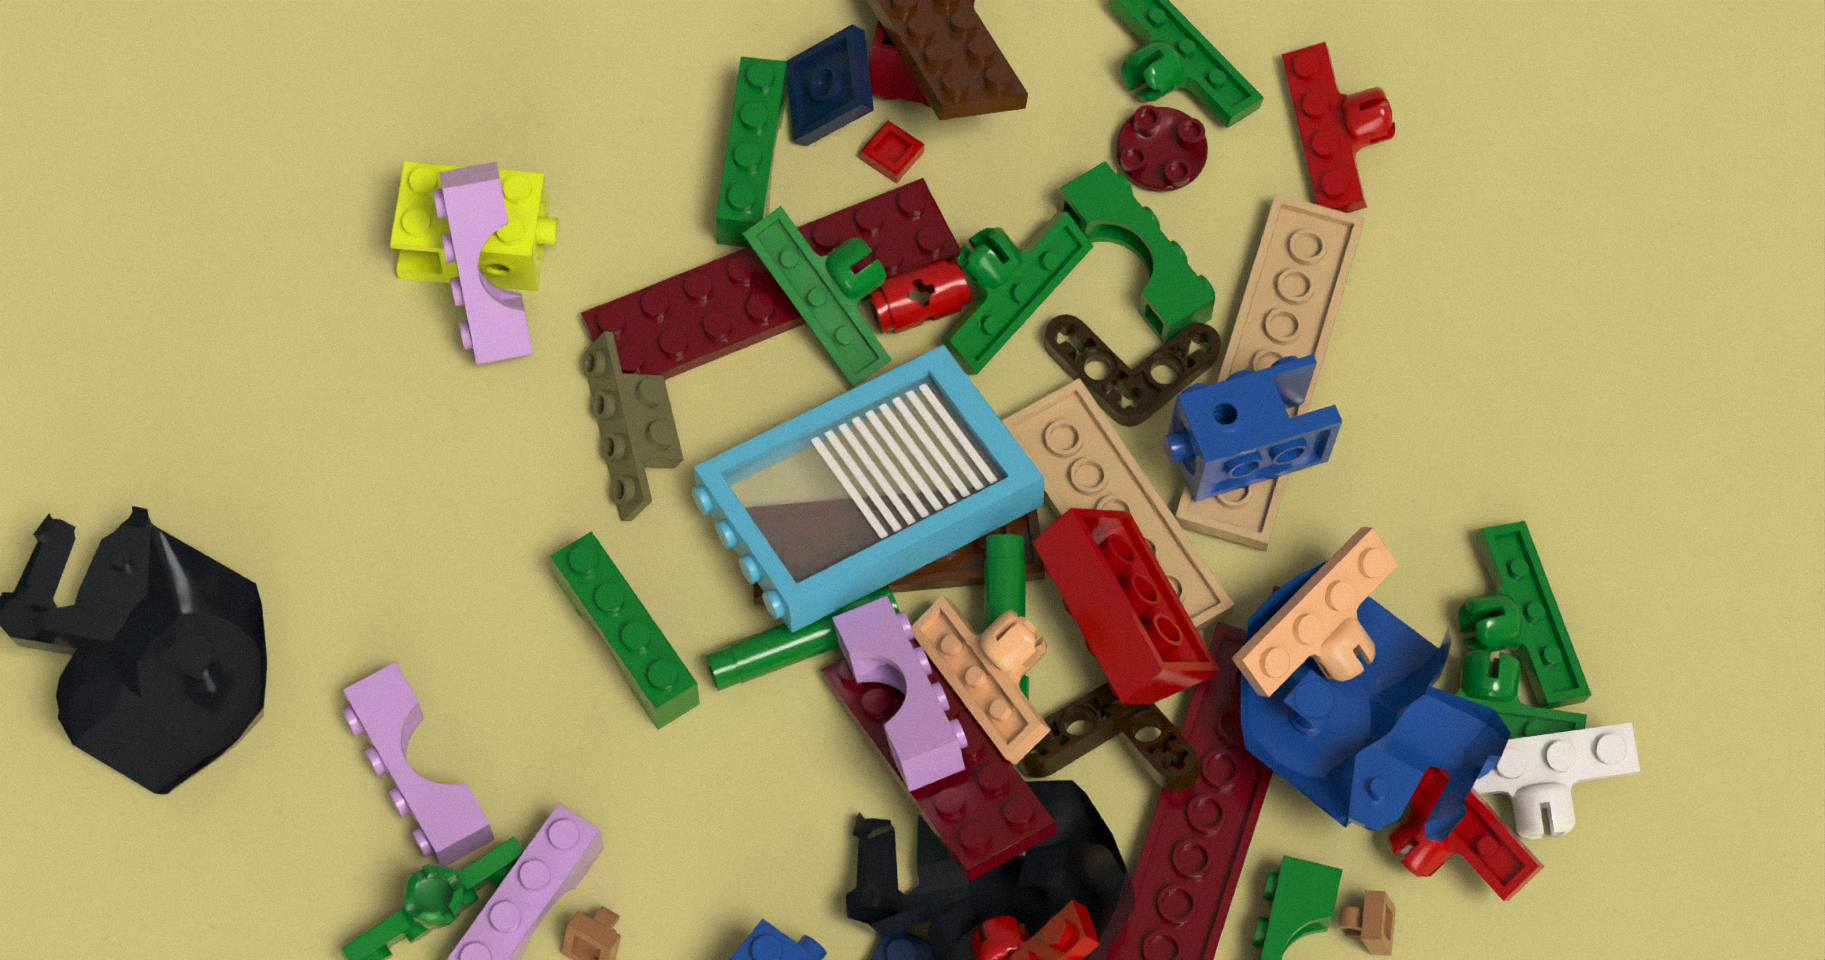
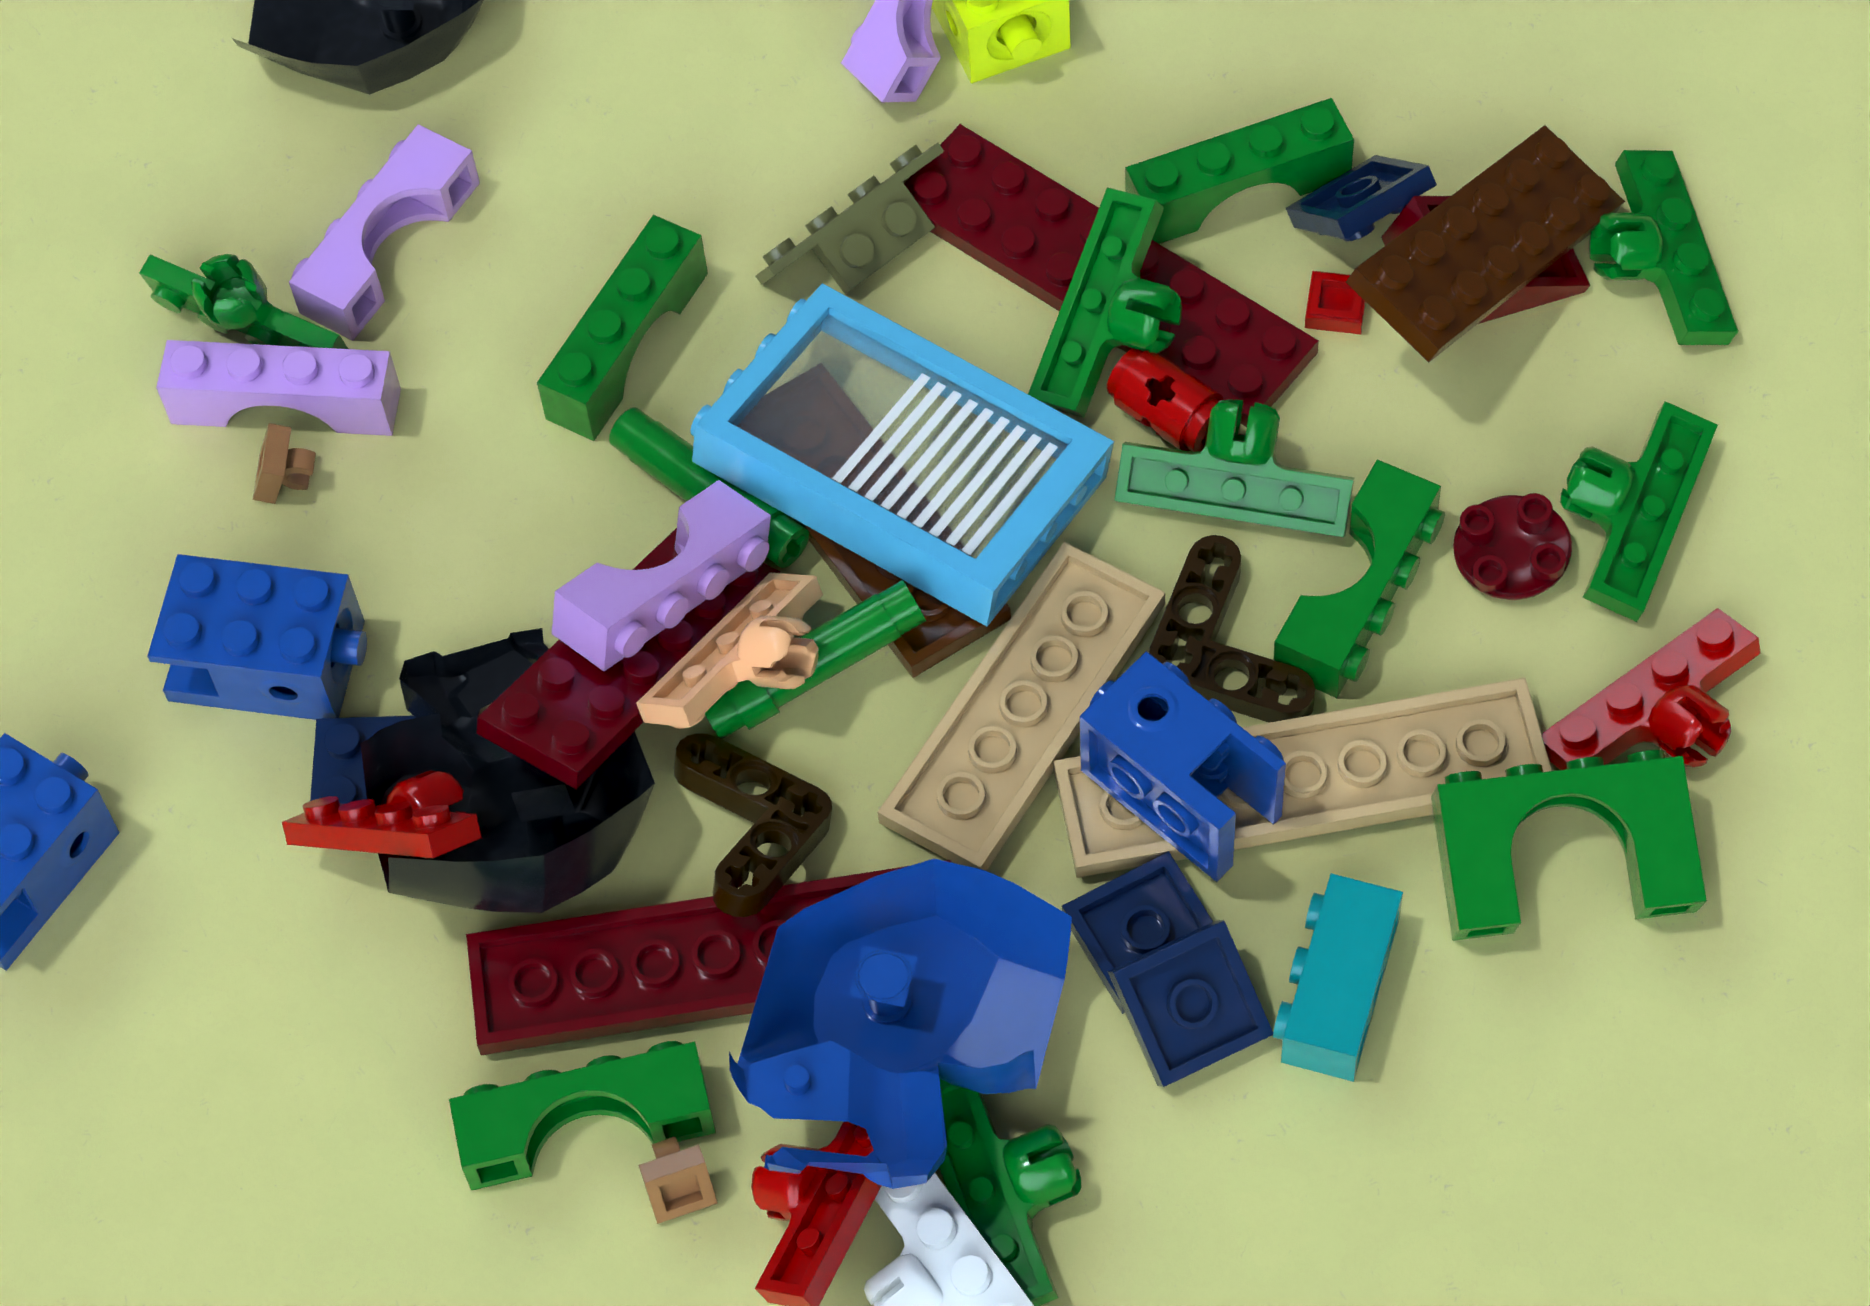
camera: 70 degrees right, 5 degrees down
(1124, 605) = (901, 749): red slope -> none
(1321, 619) = (978, 933): light nougat plate -> none
(1328, 513) = (1135, 916): none -> dark blue plate
(1380, 272) = (1639, 800): none -> green arch
(1417, 521) = (1190, 1003): none -> dark blue plate
(1438, 422) = (1338, 976): none -> teal brick
(1523, 617) = (1145, 1174): green plate -> none

